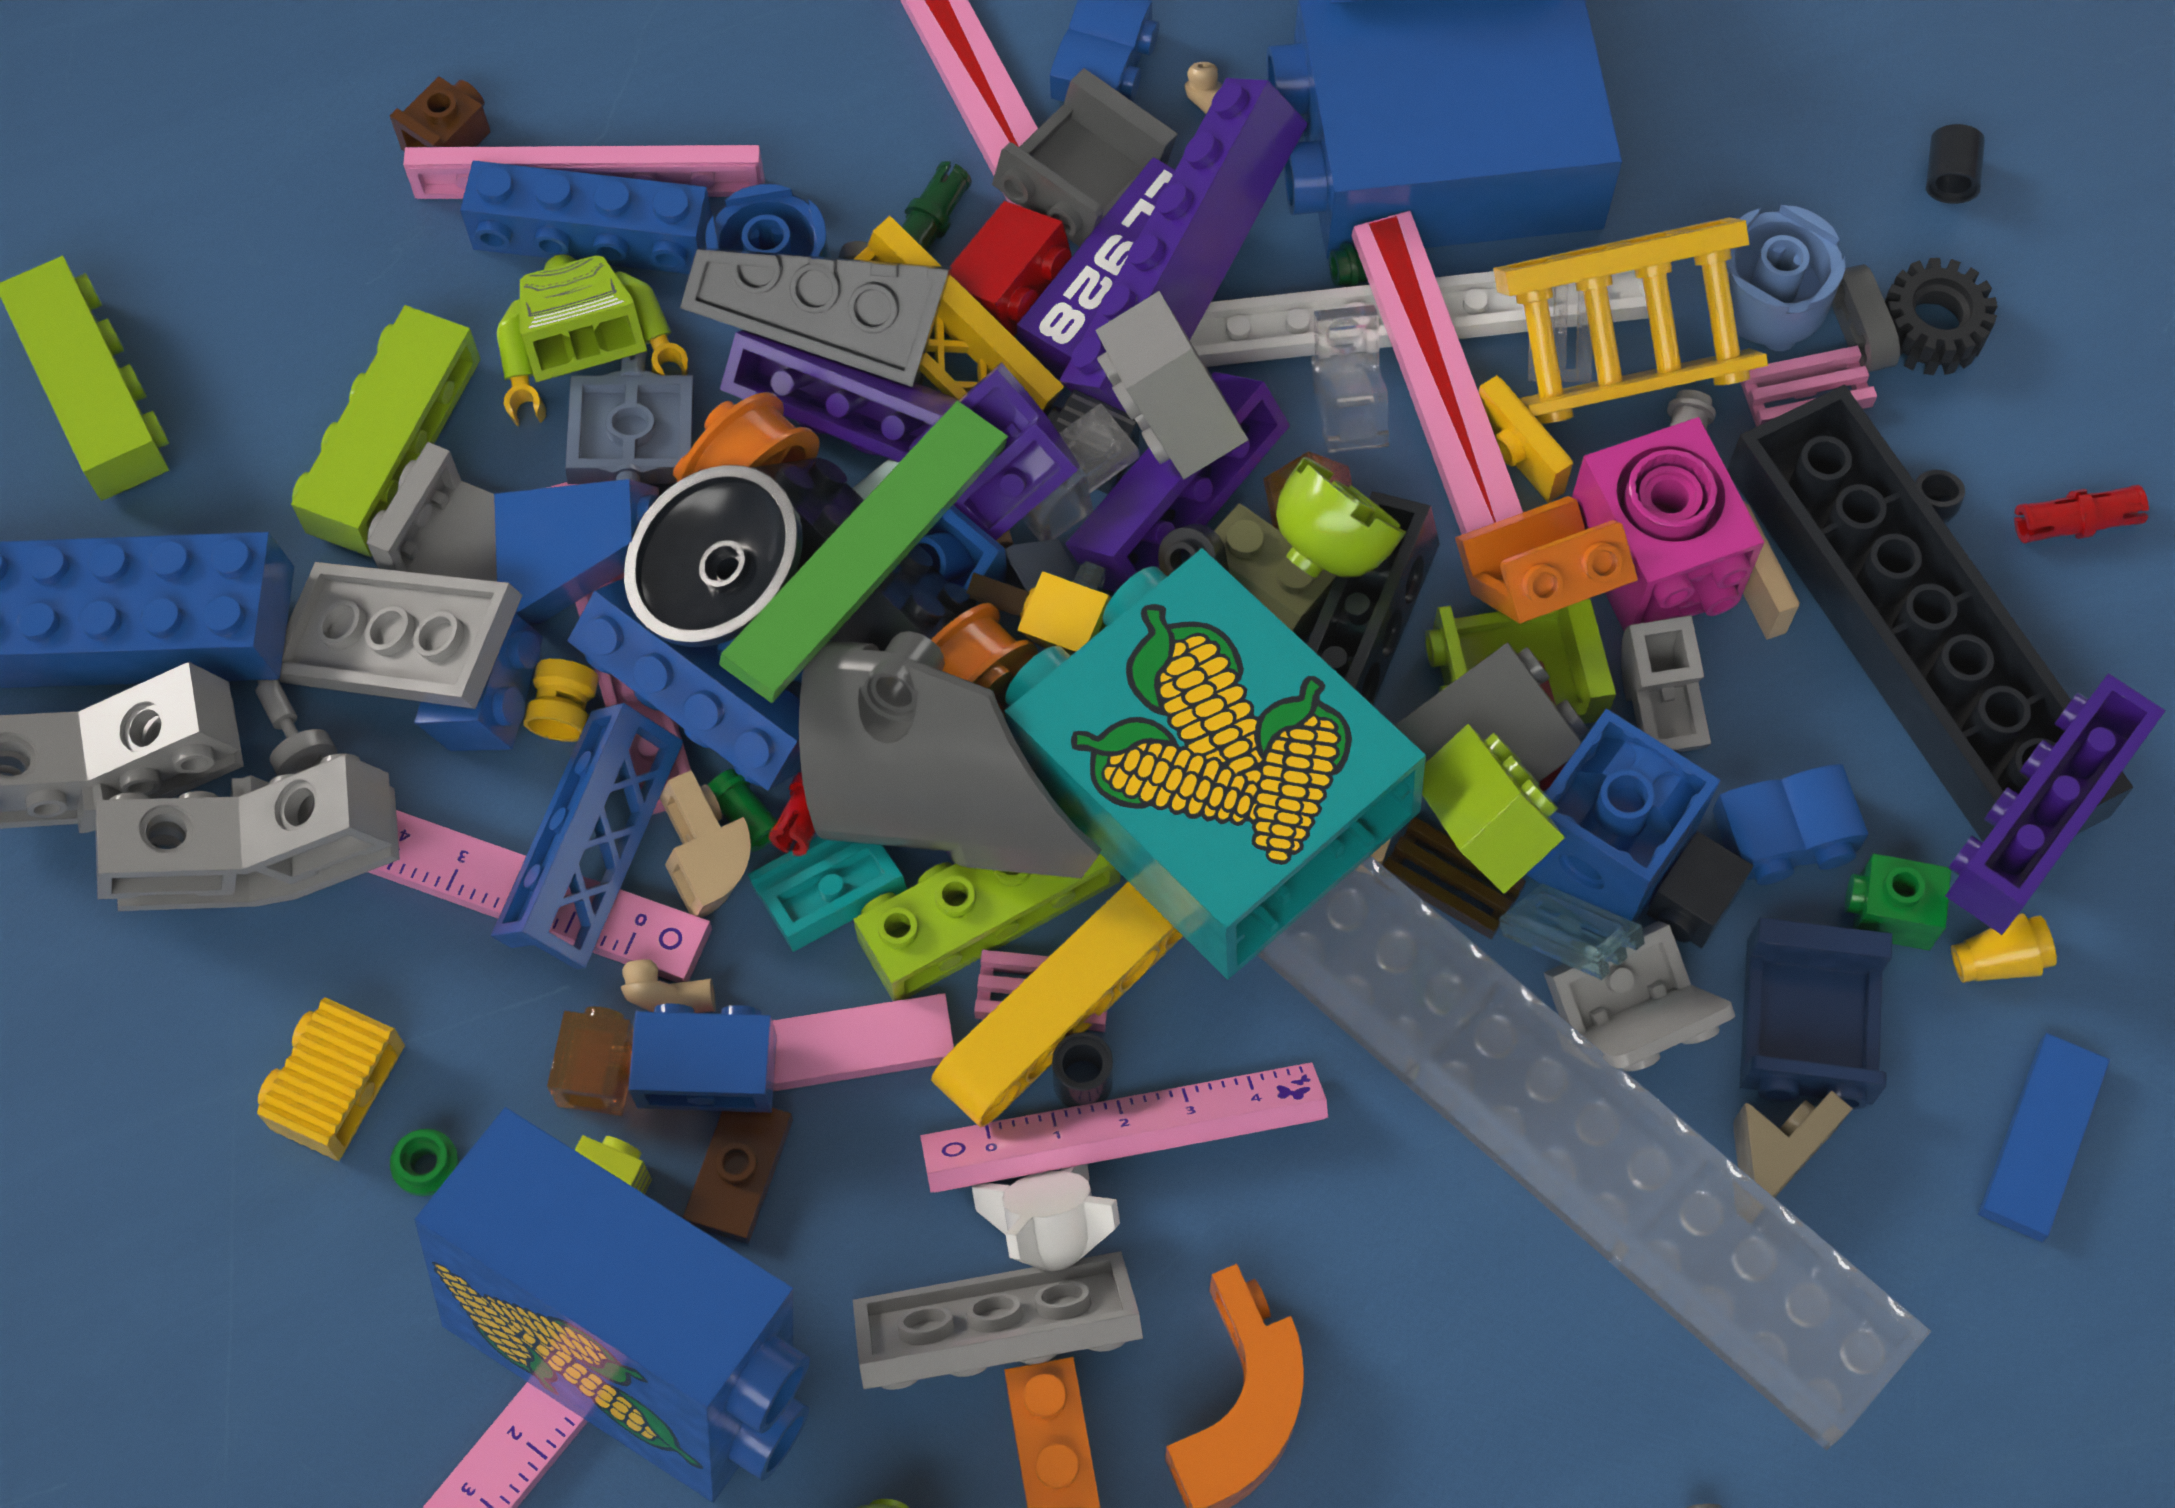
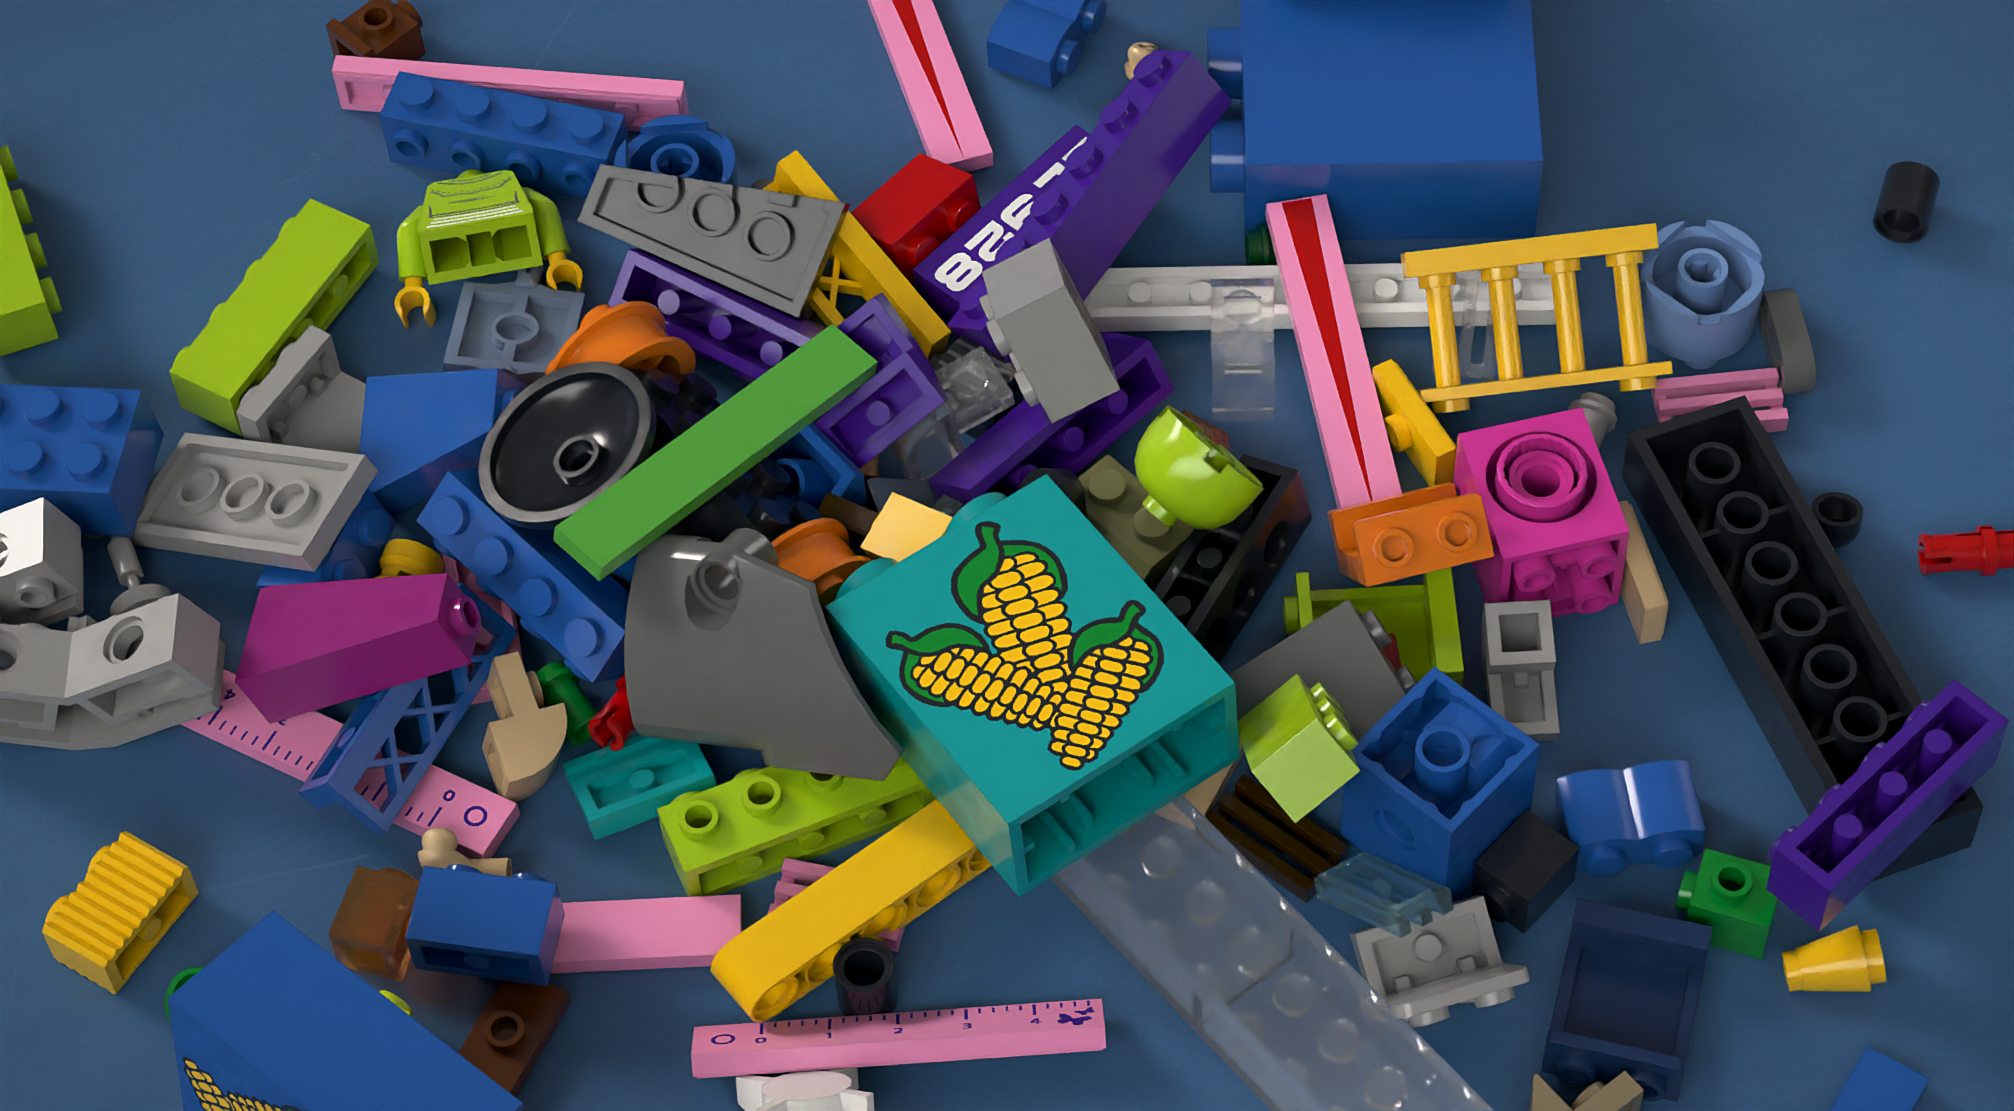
camera: 10 degrees right, 10 degrees down
(523, 775) = (352, 639): none -> magenta slope
(929, 215) = (847, 163): dark green pin -> none
(1083, 156) = (1006, 118): dark grey panel -> none
(1953, 292) = (1869, 319): black tyre -> none

